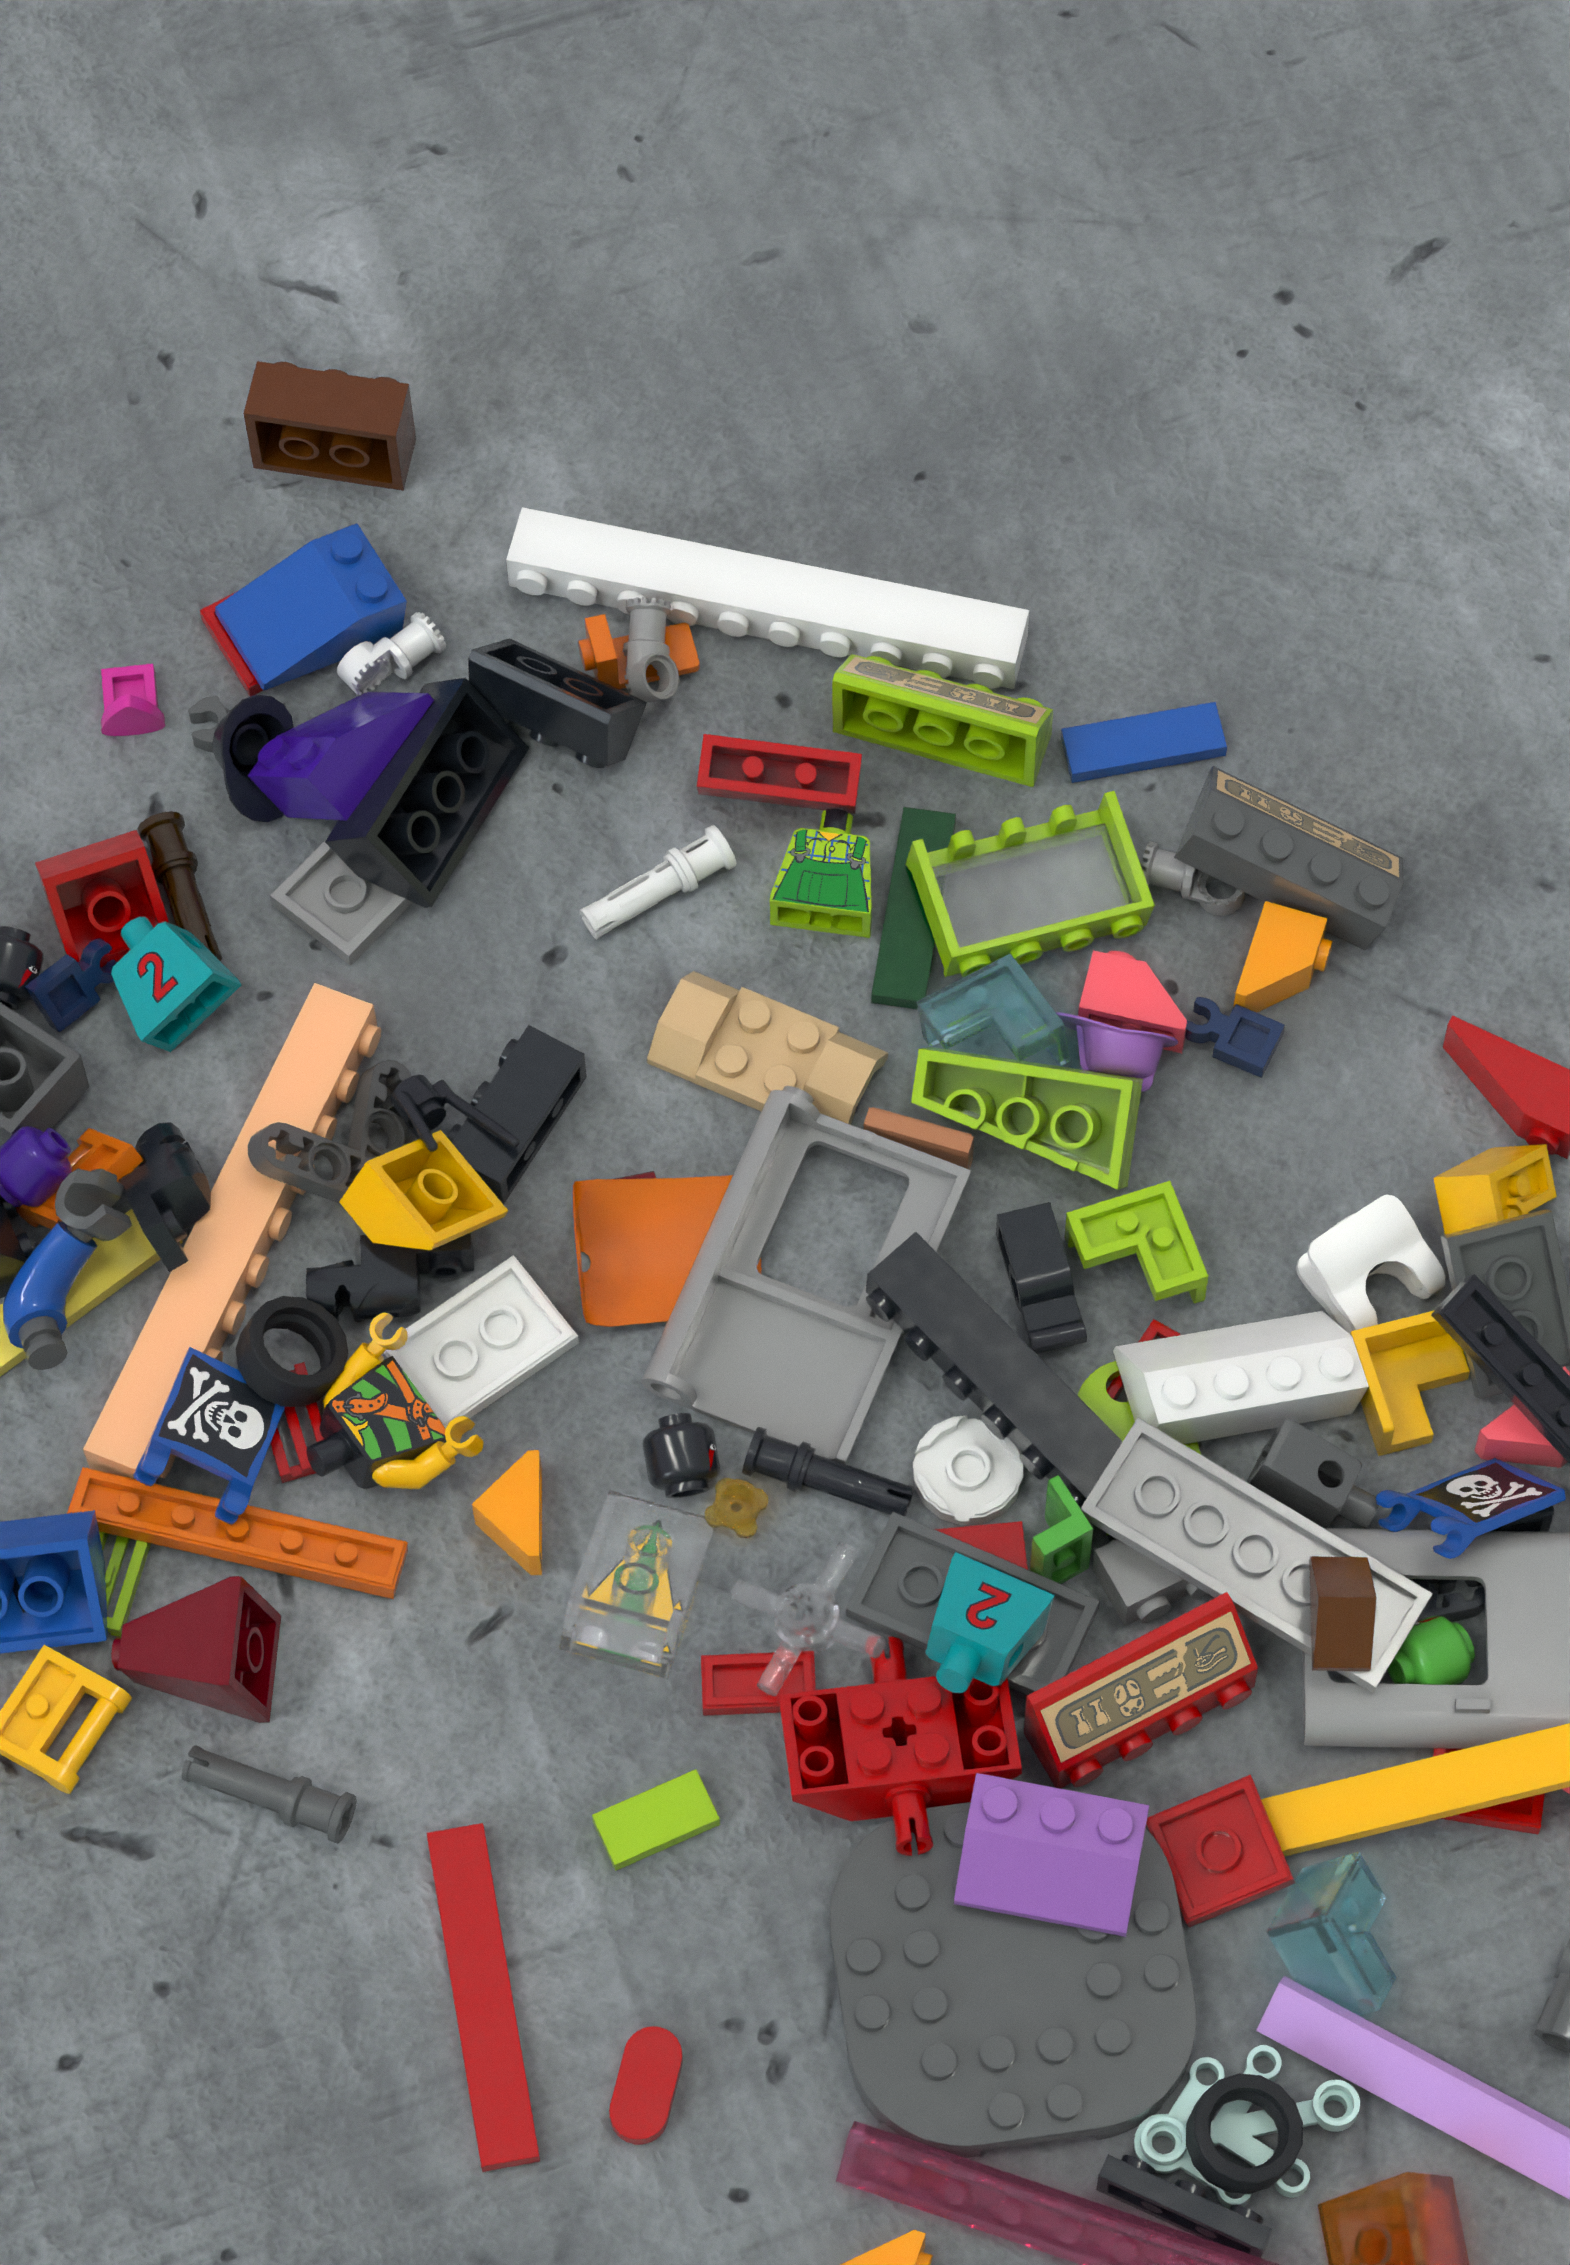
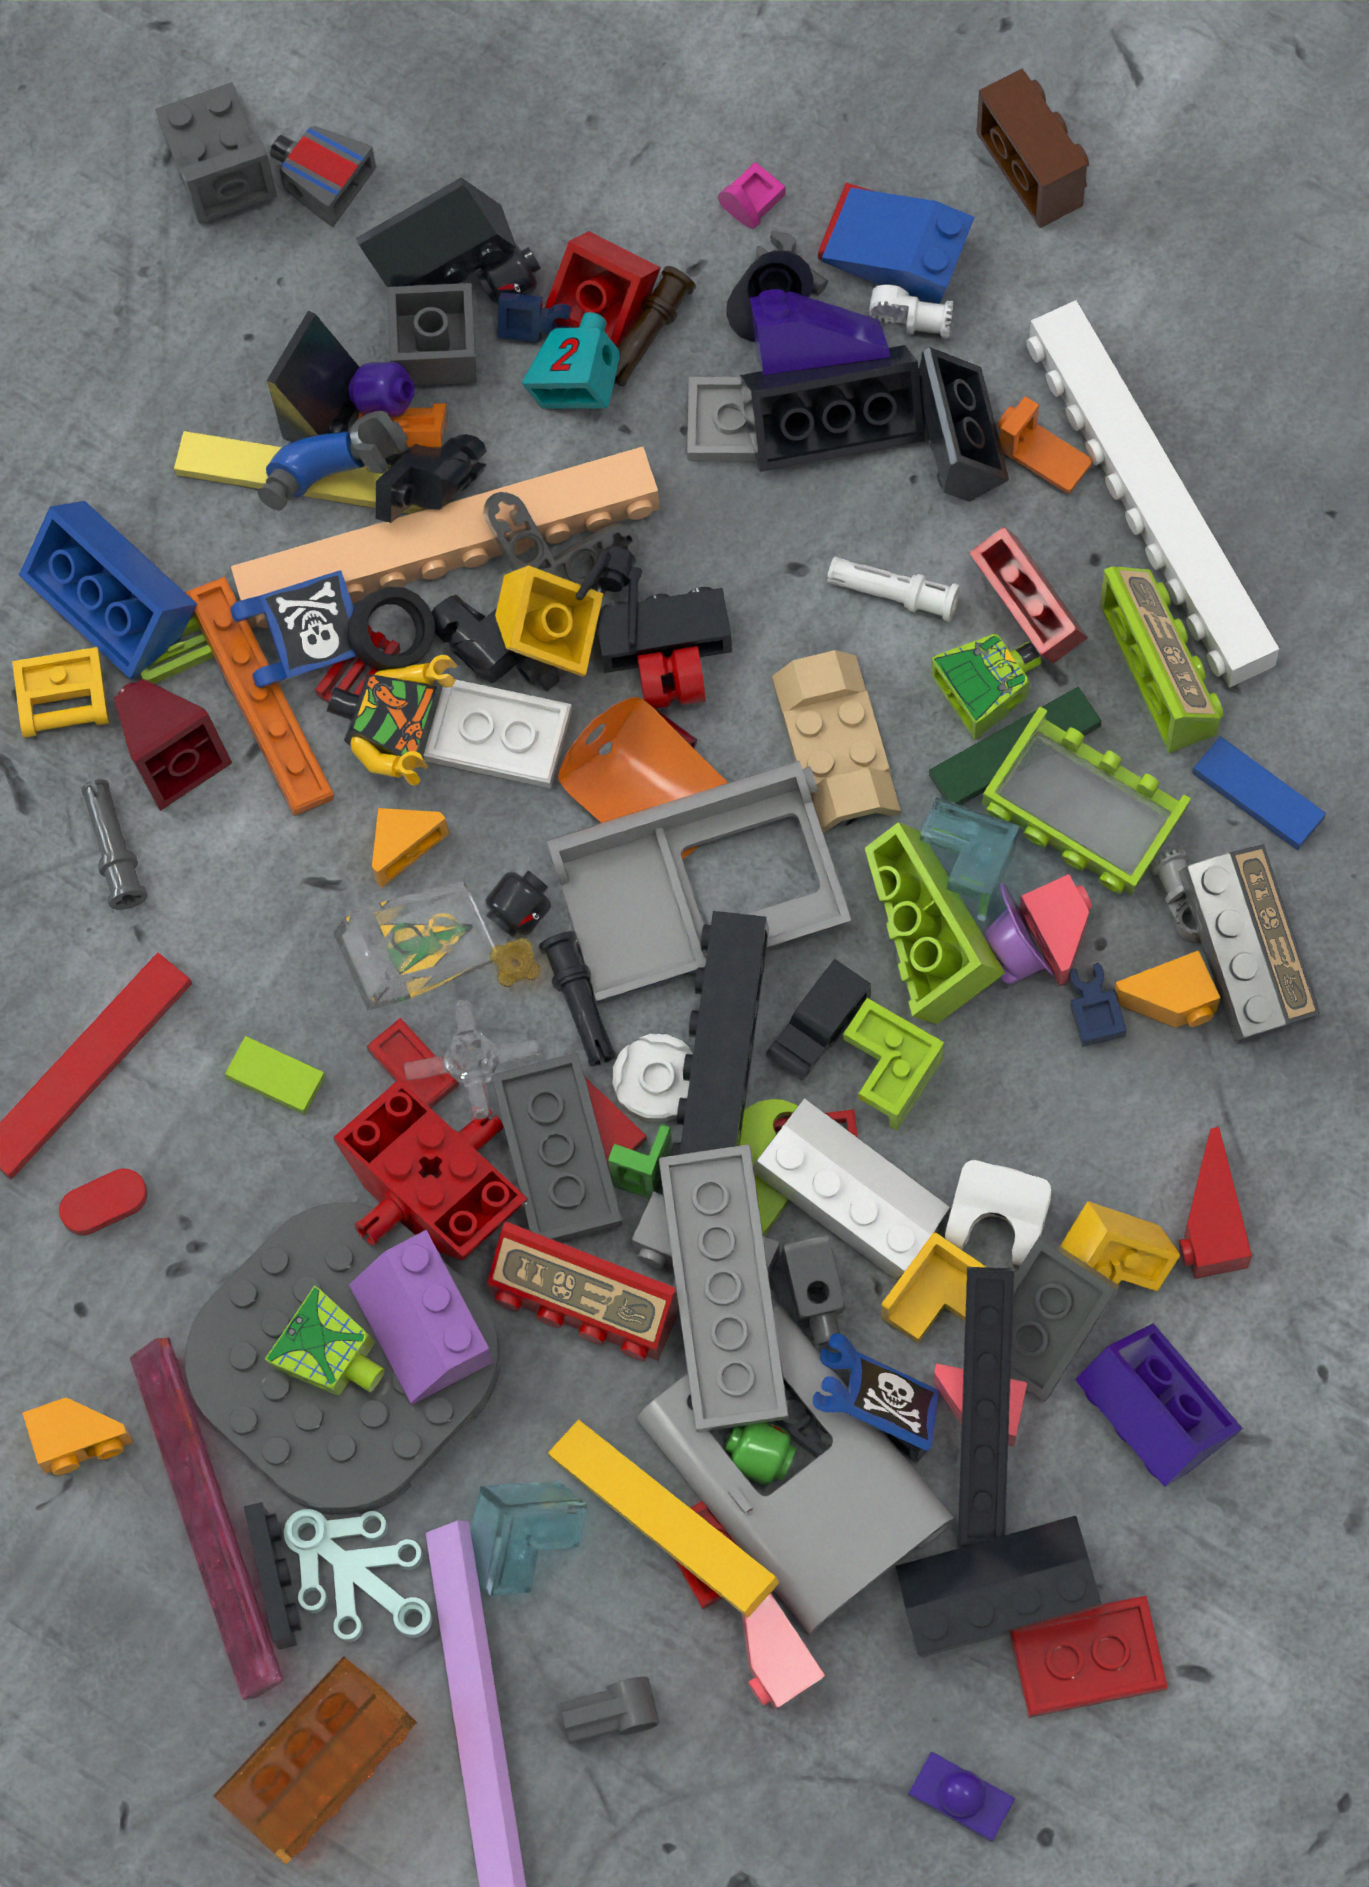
camera: 55 degrees right, 5 degrees up
(578, 1137) = (687, 678): none -> red wheel
(648, 646) = (1046, 450): light grey connector -> none
(923, 1136) = (851, 875): nougat tile -> none
(984, 1624) = (534, 1160): teal torso -> none
(1005, 1967) = (325, 1348): none -> torso
(1221, 1850) = (524, 1421): red tile -> none
(1276, 2104) = (320, 1545): black tyre -> none
(1341, 1613) = (722, 1367): reddish brown slope -> none

